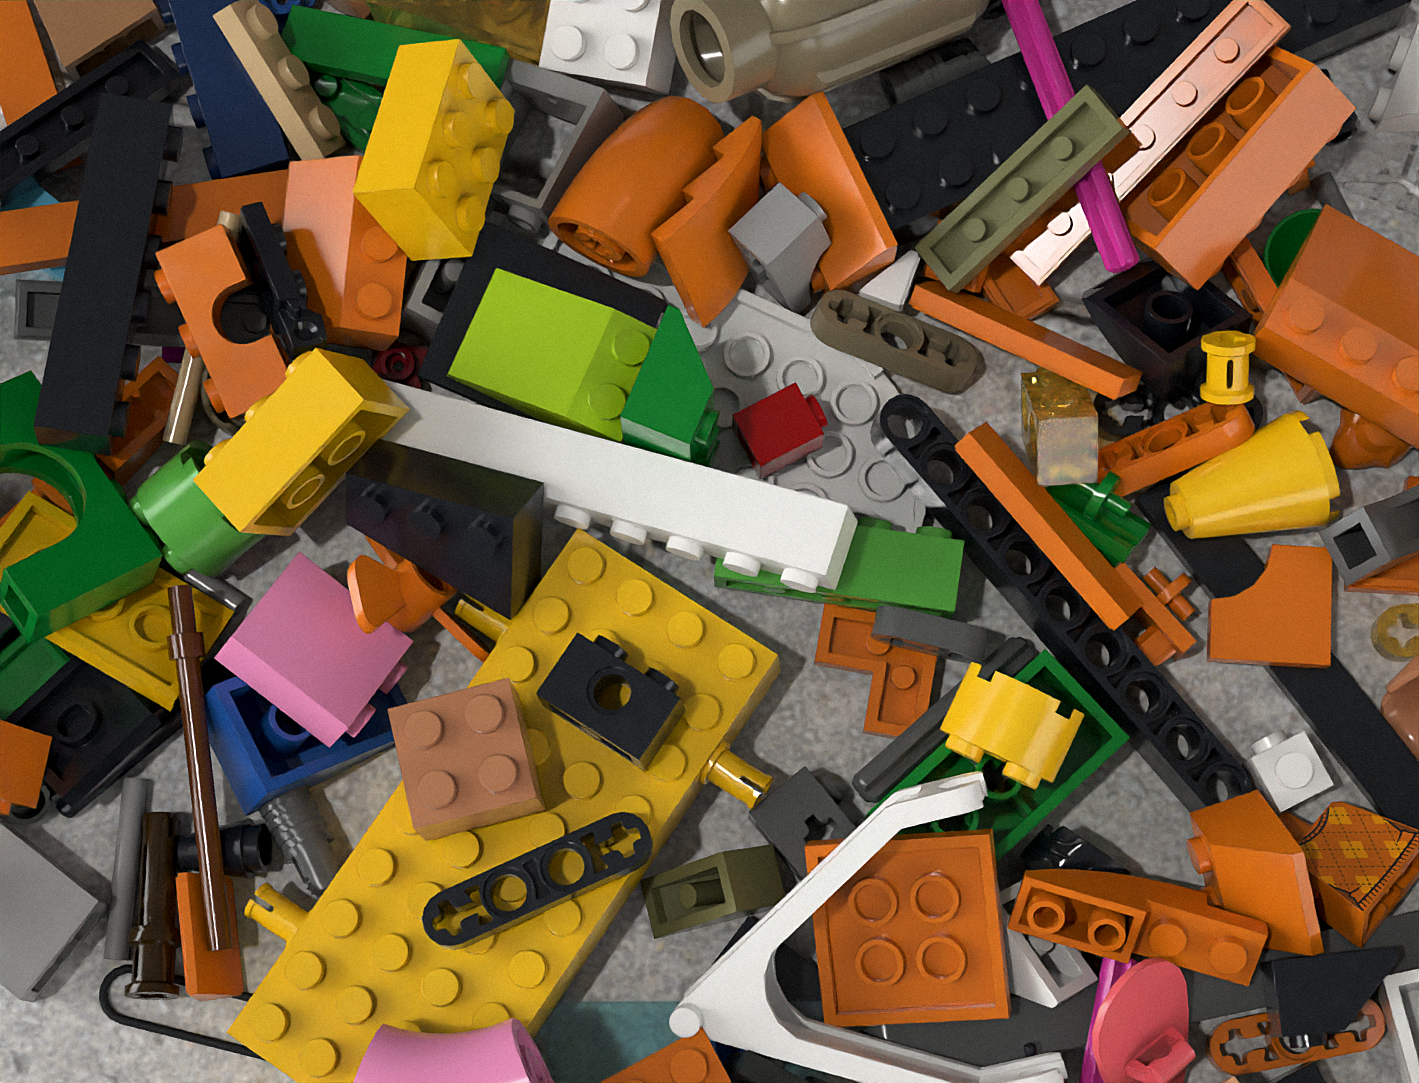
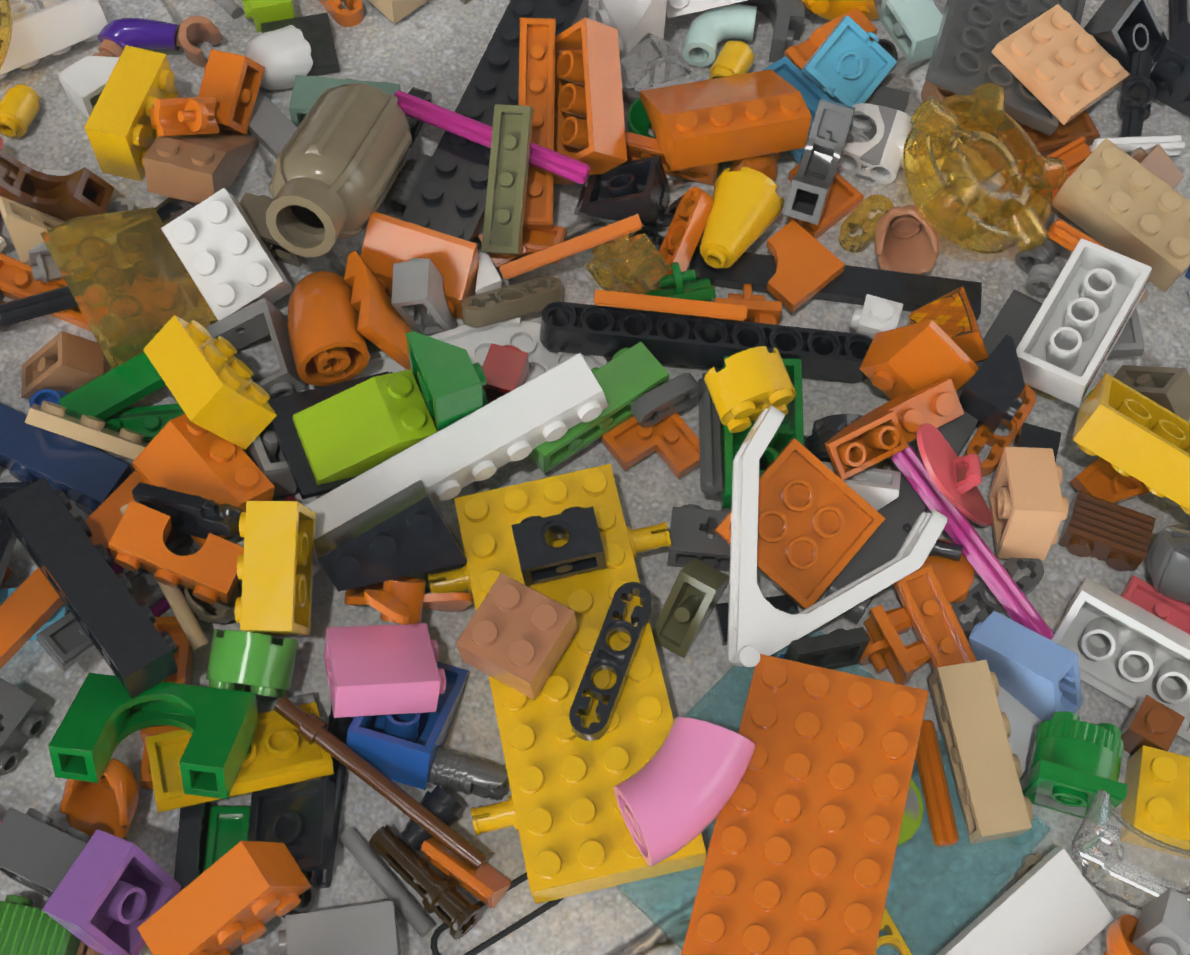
camera: 50 degrees left, 15 degrees down
(1234, 386) = (674, 178): yellow bush -> none

